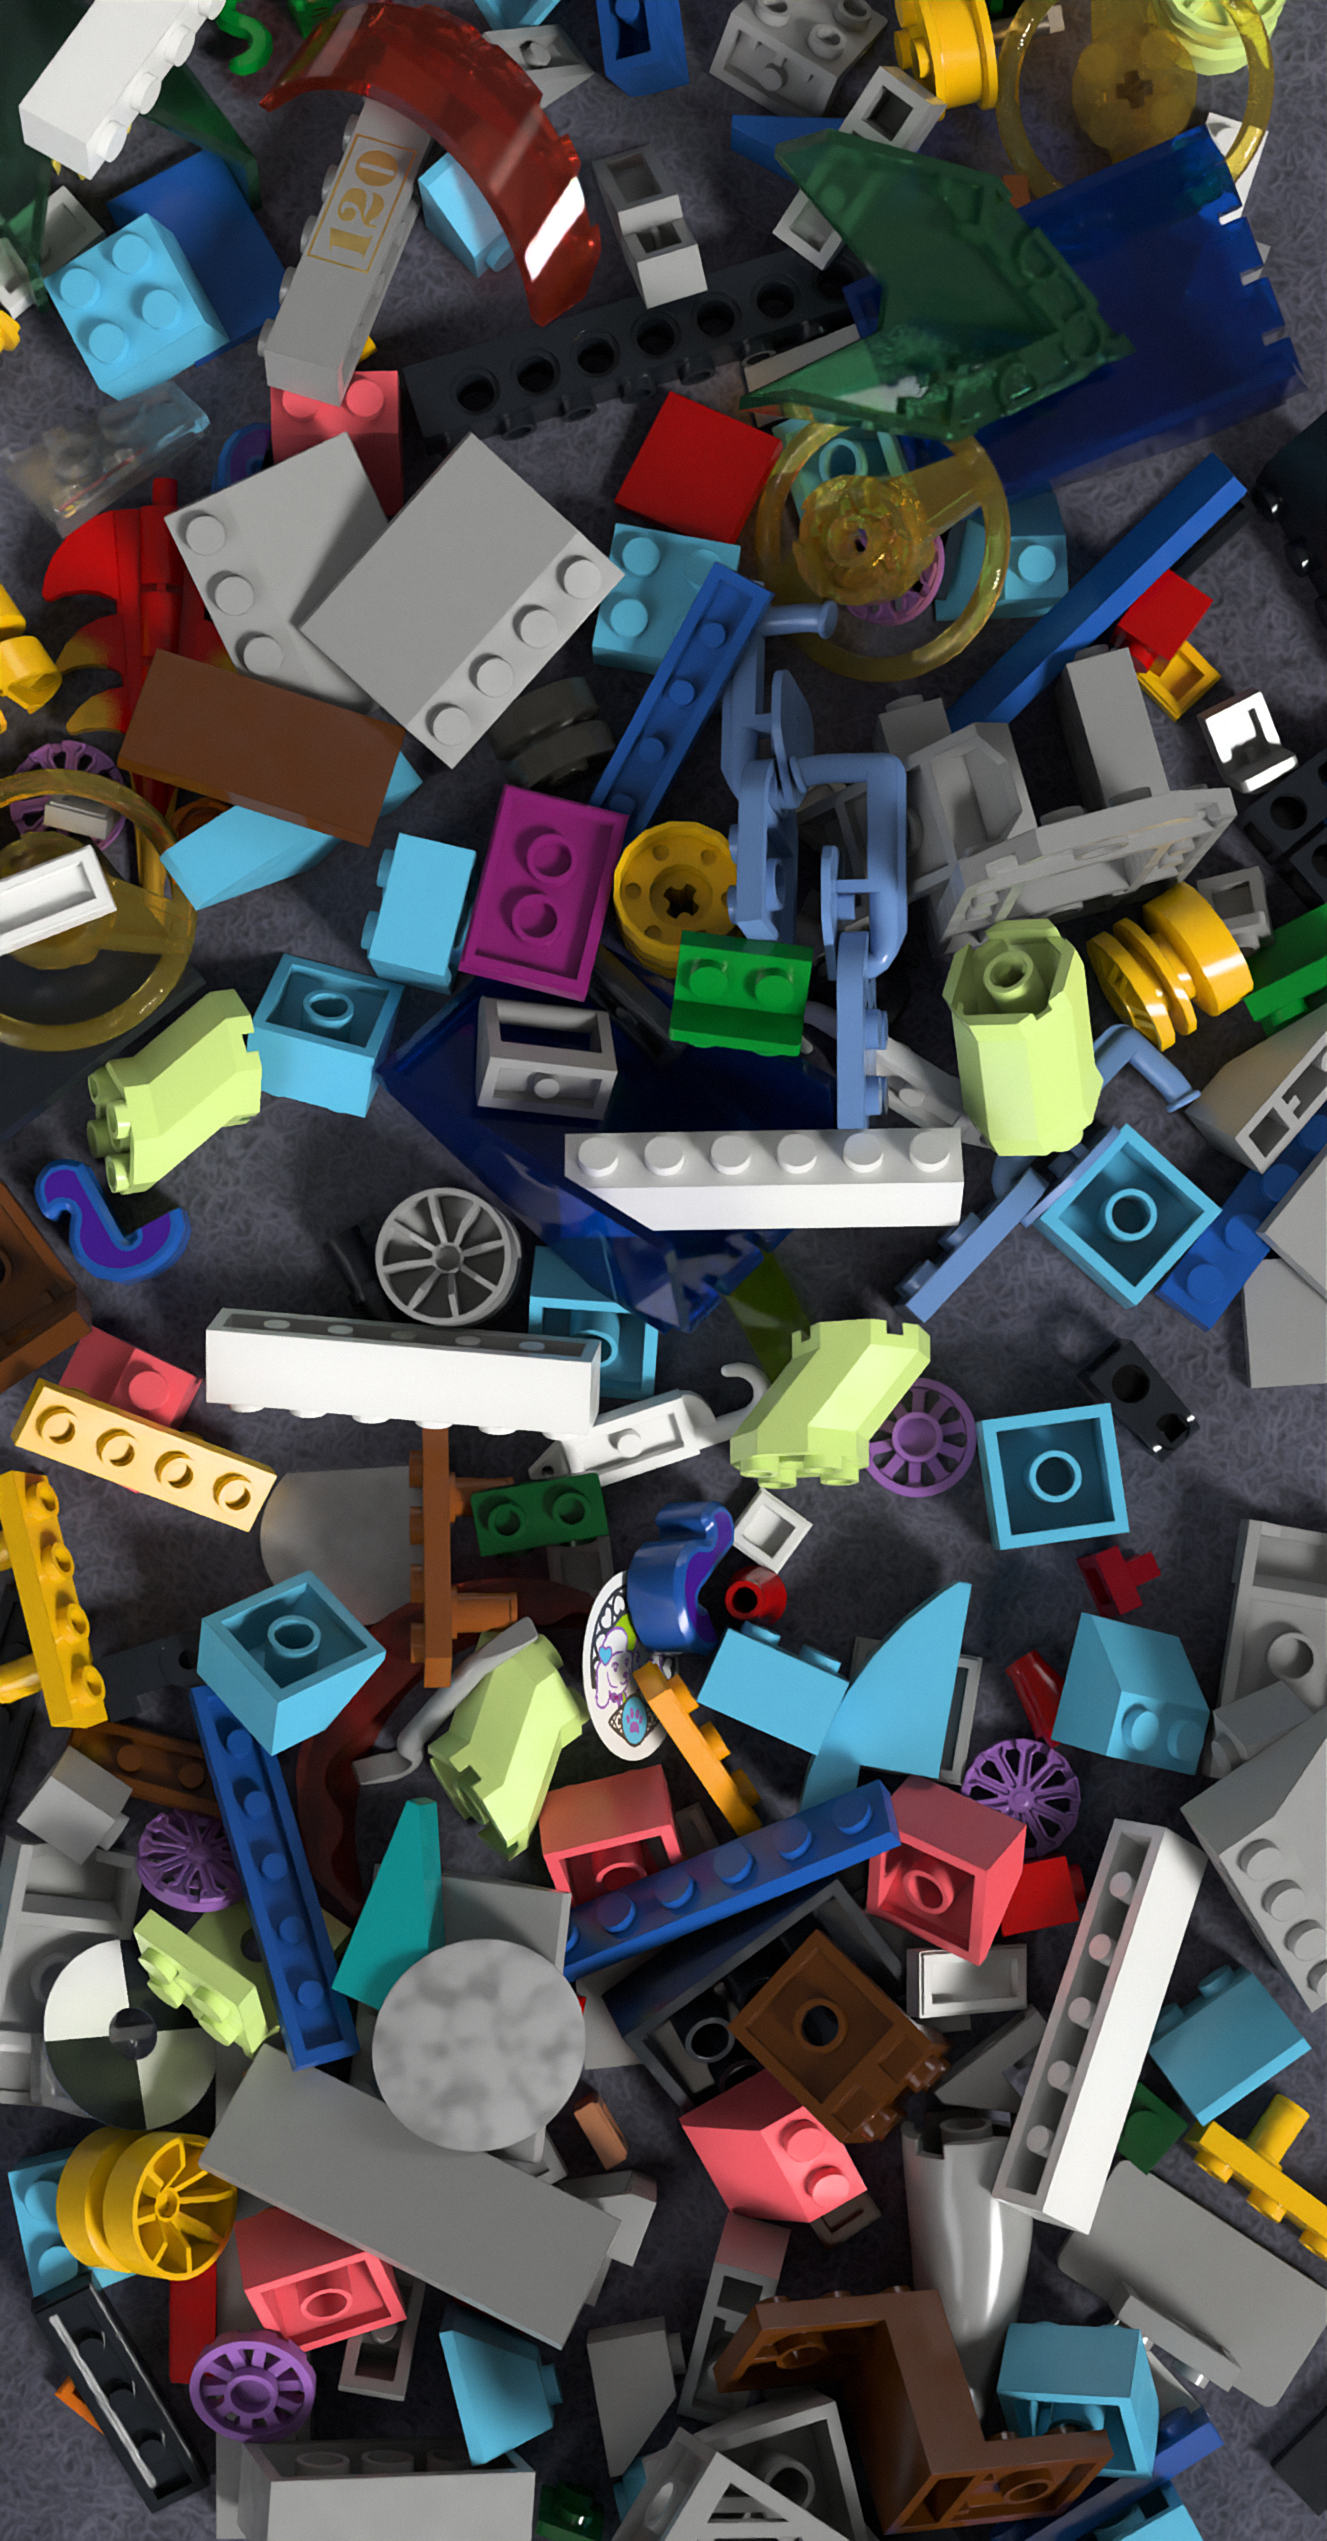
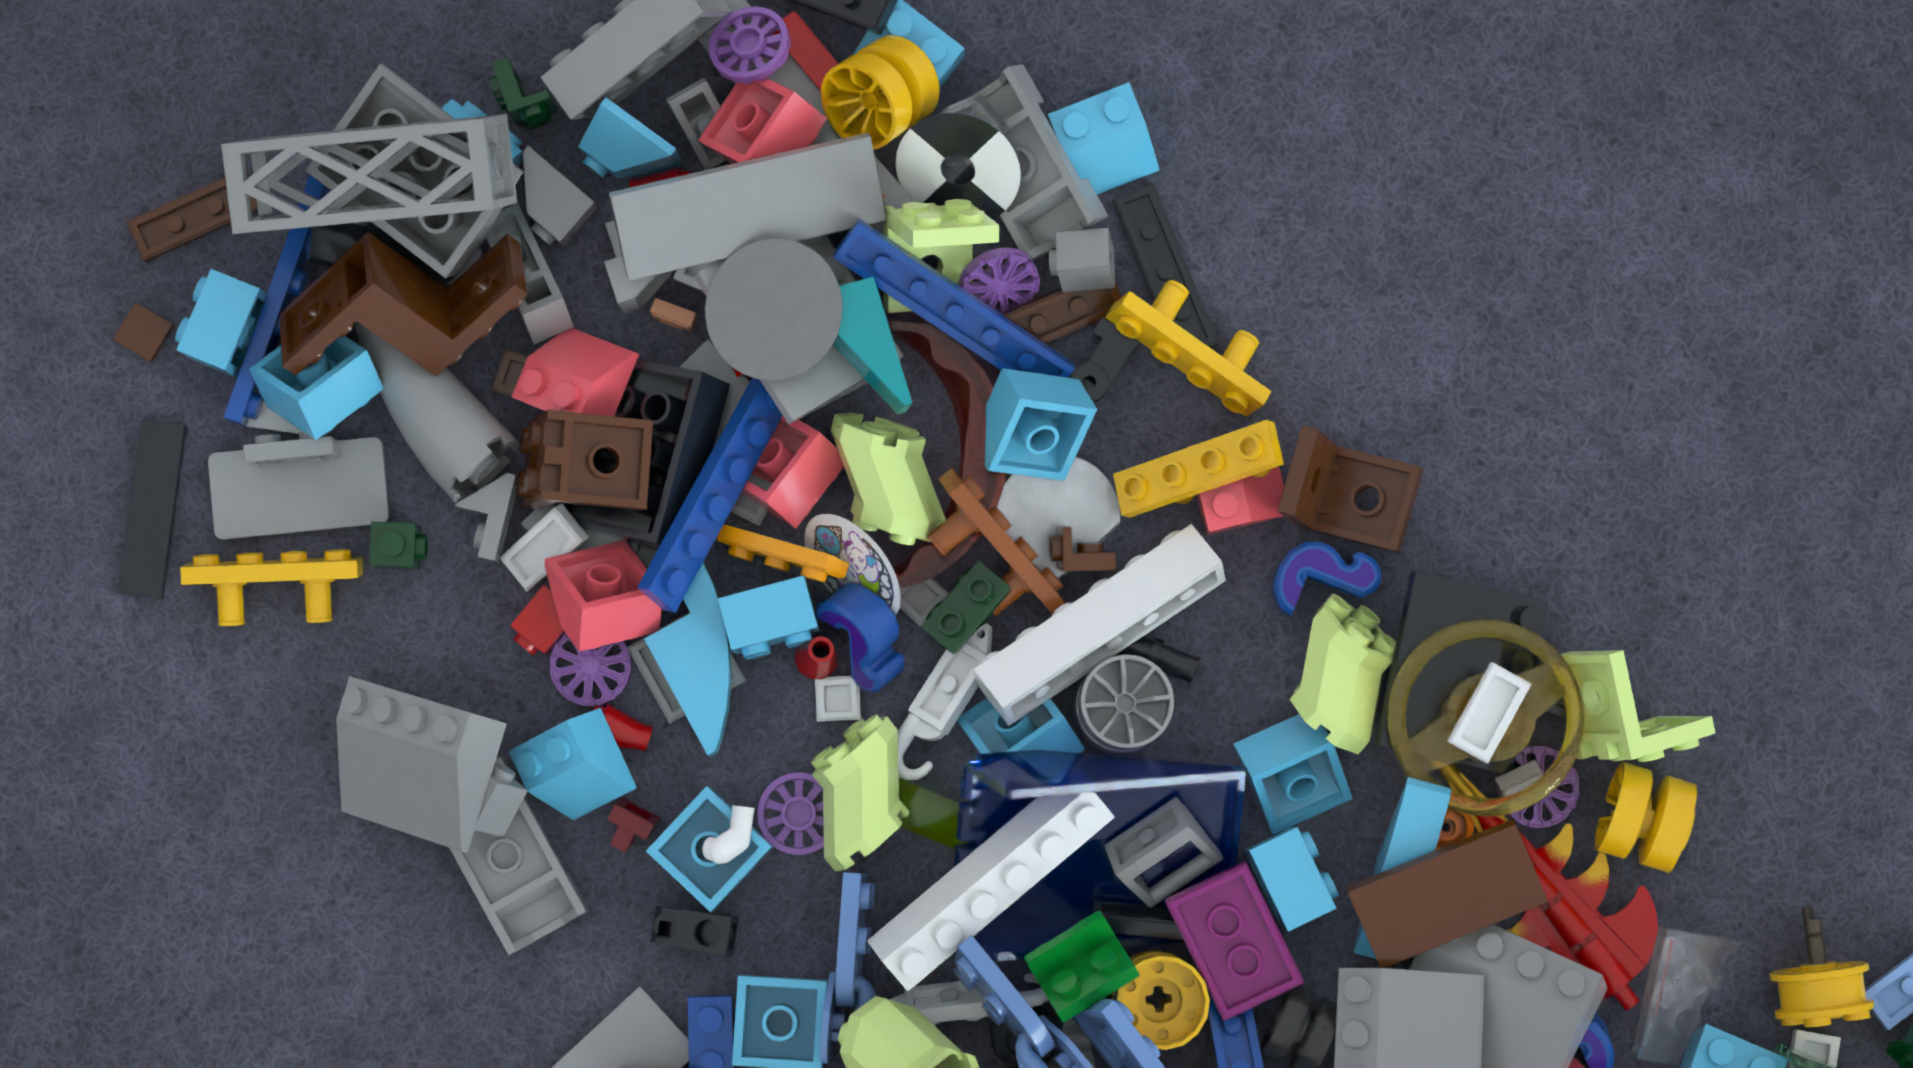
camera: 145 degrees right, 0 degrees up
(356, 1460) = (1088, 556): none -> reddish brown bracket
(438, 1708) = (936, 465): light grey piece -> none
(1020, 1460) = (732, 841): none -> white arm
(1100, 2025) = (457, 580): white brick -> none
(1223, 2042) = (385, 622): medium azure slope -> none

